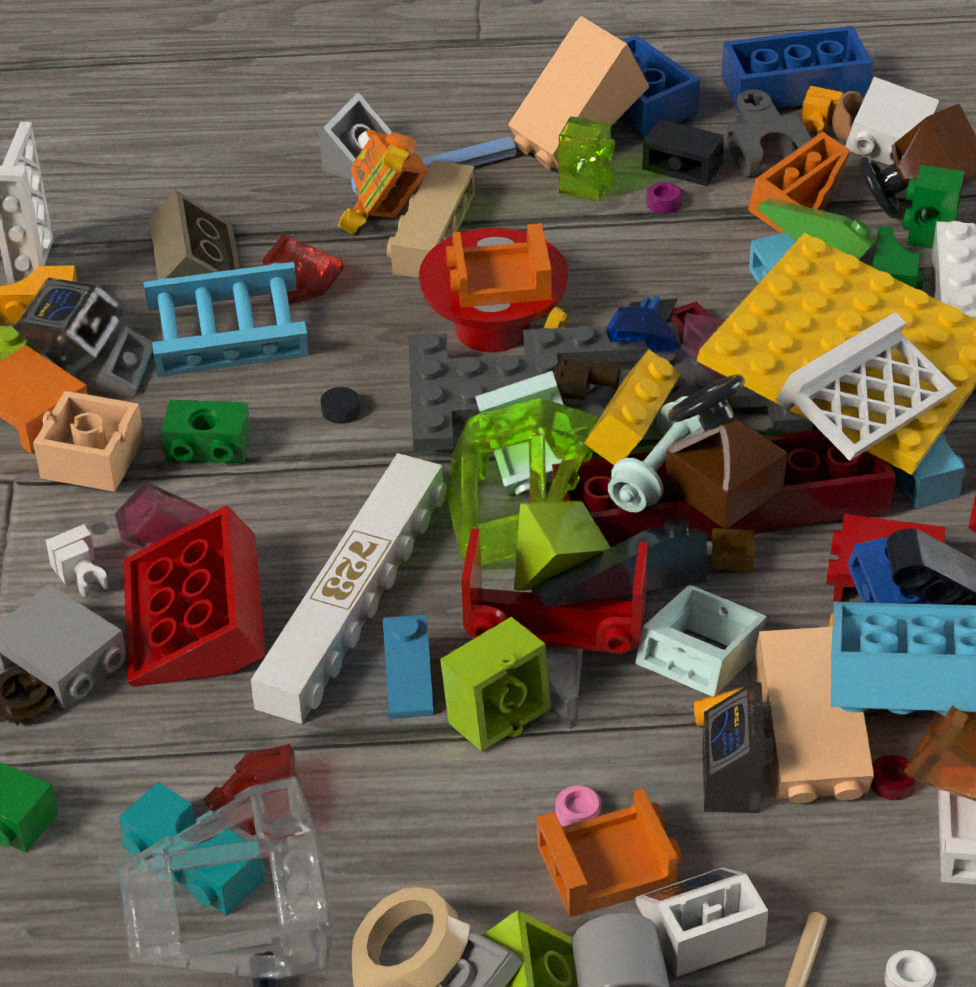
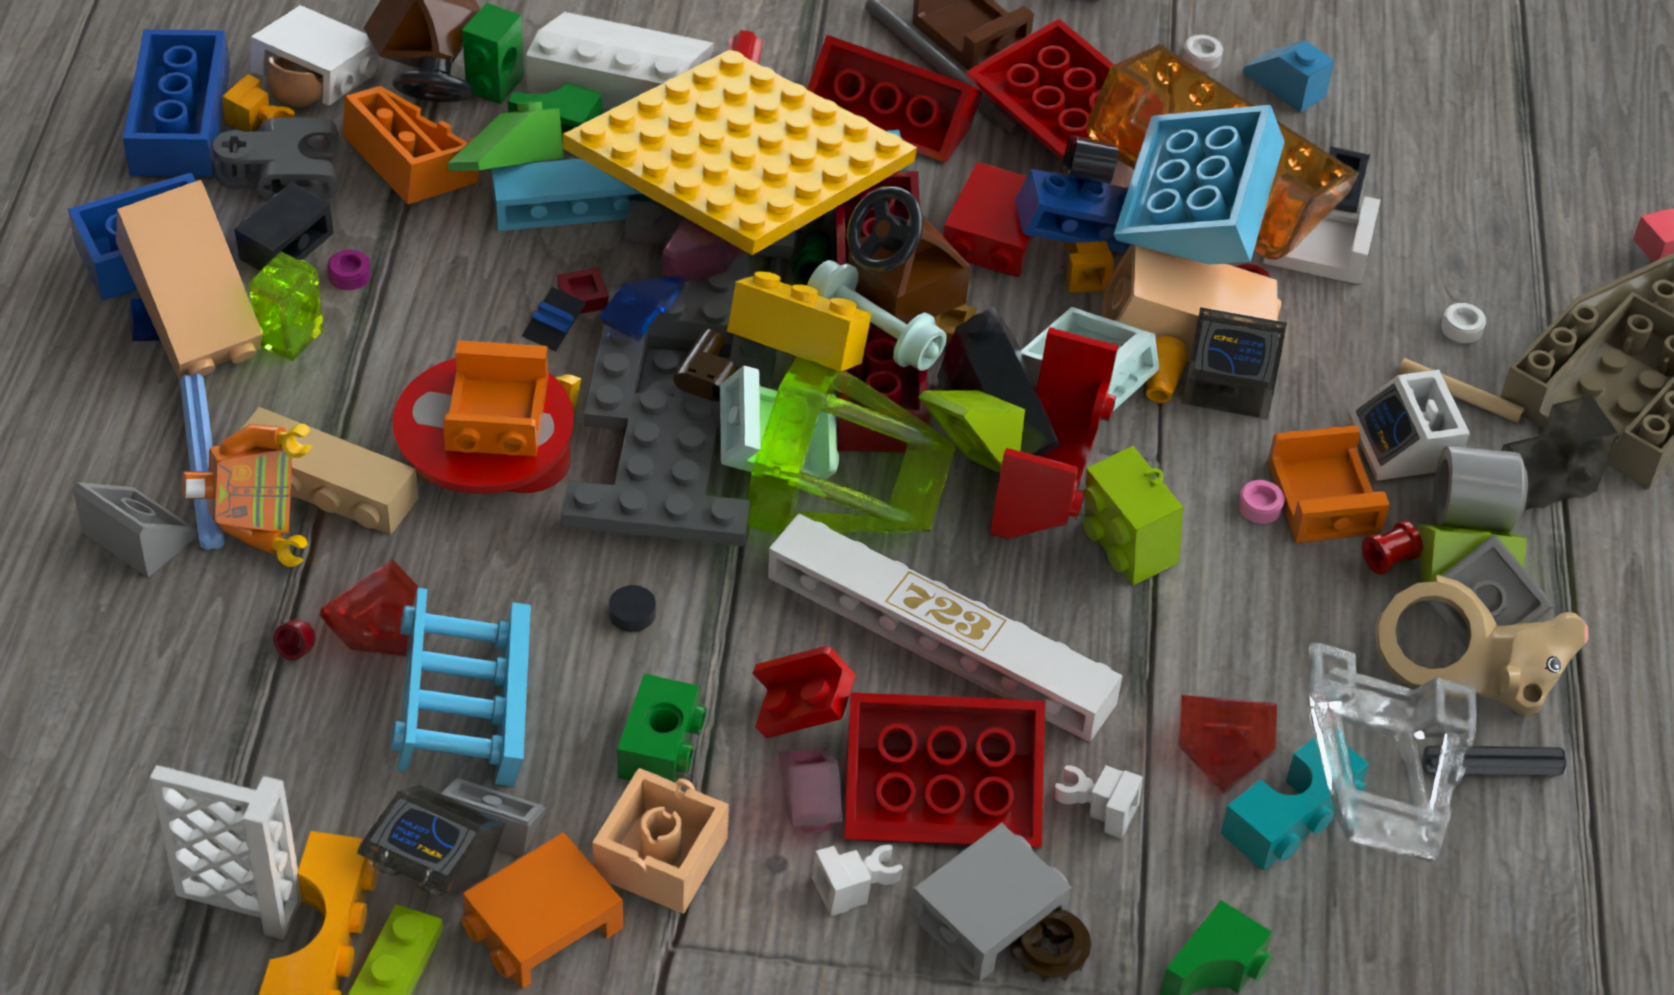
camera: 85 degrees left, 5 degrees up
(177, 716) = (1111, 798): none -> white piece
(191, 239) = (297, 717): dark tan slope -> none
(250, 498) = (803, 691): none -> red bracket
(268, 238) = (288, 637): none -> dark red hinge
(408, 666) = (1072, 594): dark azure slope -> none
(526, 899) = (1392, 547): none -> red bush
(847, 365) = (831, 141): white fence -> none

